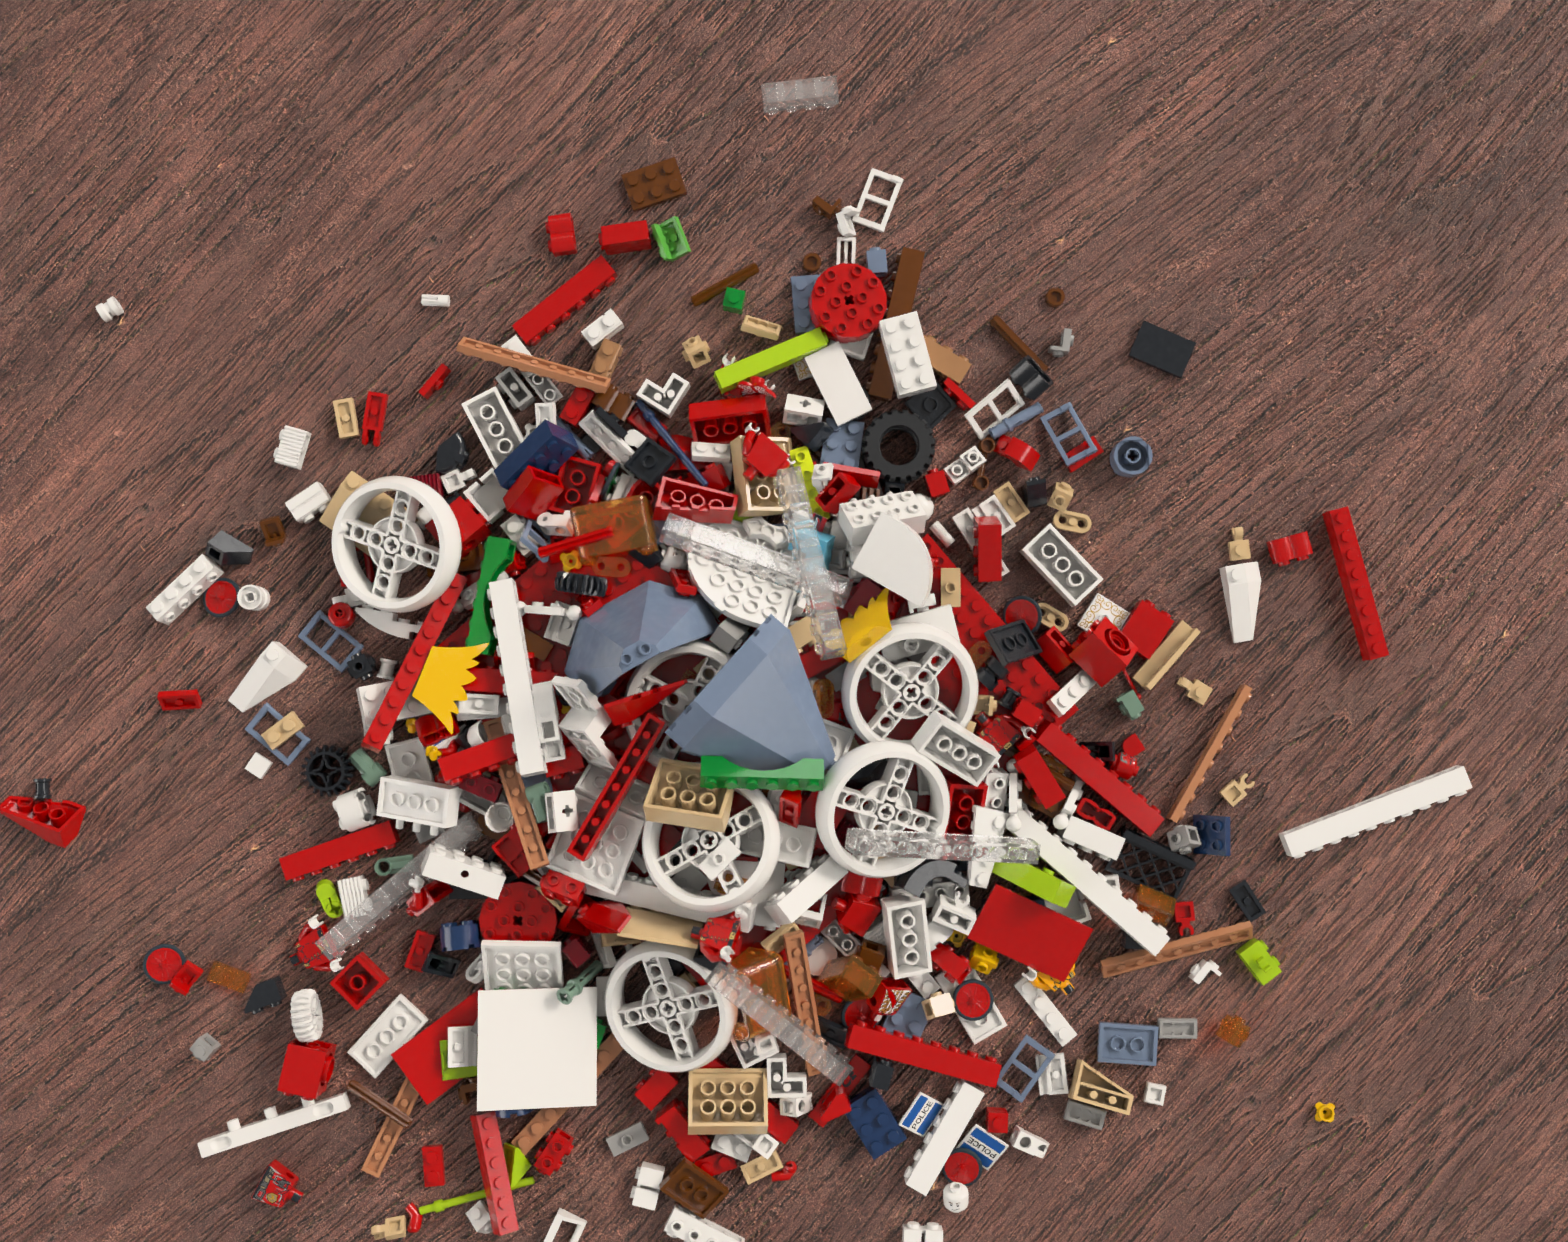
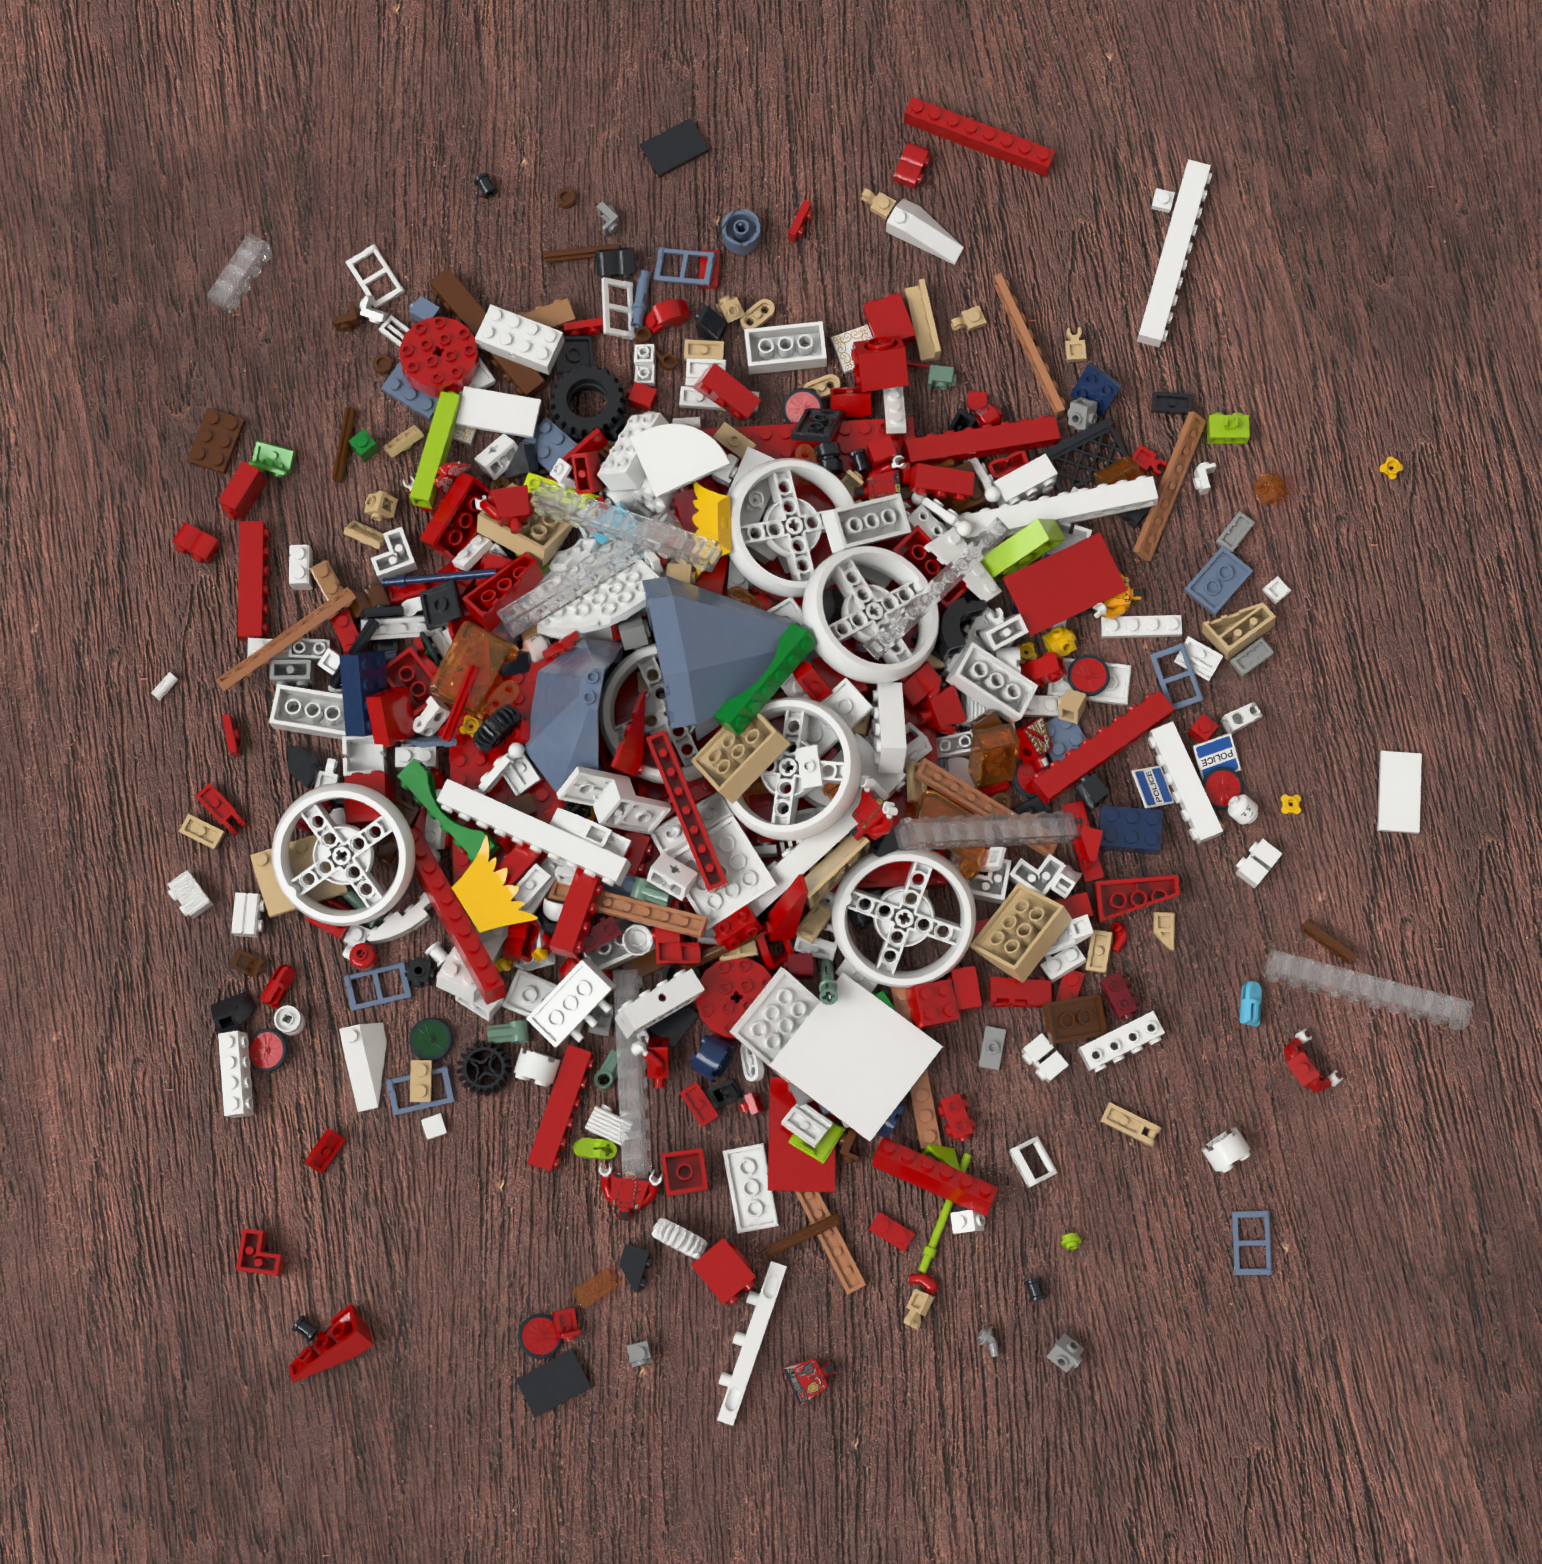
camera: 50 degrees left, 10 degrees down
(62, 713) = (253, 1256): none -> red brick
(138, 999) = (553, 1383): none -> black tile
(274, 567) = (278, 986): none -> red arm
(320, 712) = (430, 1039): none -> dark green wheel
(450, 991) = (752, 1104): none -> red tile
(567, 424) = (358, 646): none -> black axle
(623, 1073) = (932, 1004): none -> red brick
(665, 357) = (365, 534): none -> tan plate
(736, 1208) = (1118, 996): none -> dark red brick
(818, 1201) = (1164, 928): none -> tan tile
(823, 1160) = (1127, 895): none -> red wedge
(988, 1223) = (1286, 808): none -> yellow plate
(1016, 227) = (485, 185): none -> black bush
(1168, 498) = (803, 215): none -> red plate
(1413, 768) = (1162, 200): none -> white plate

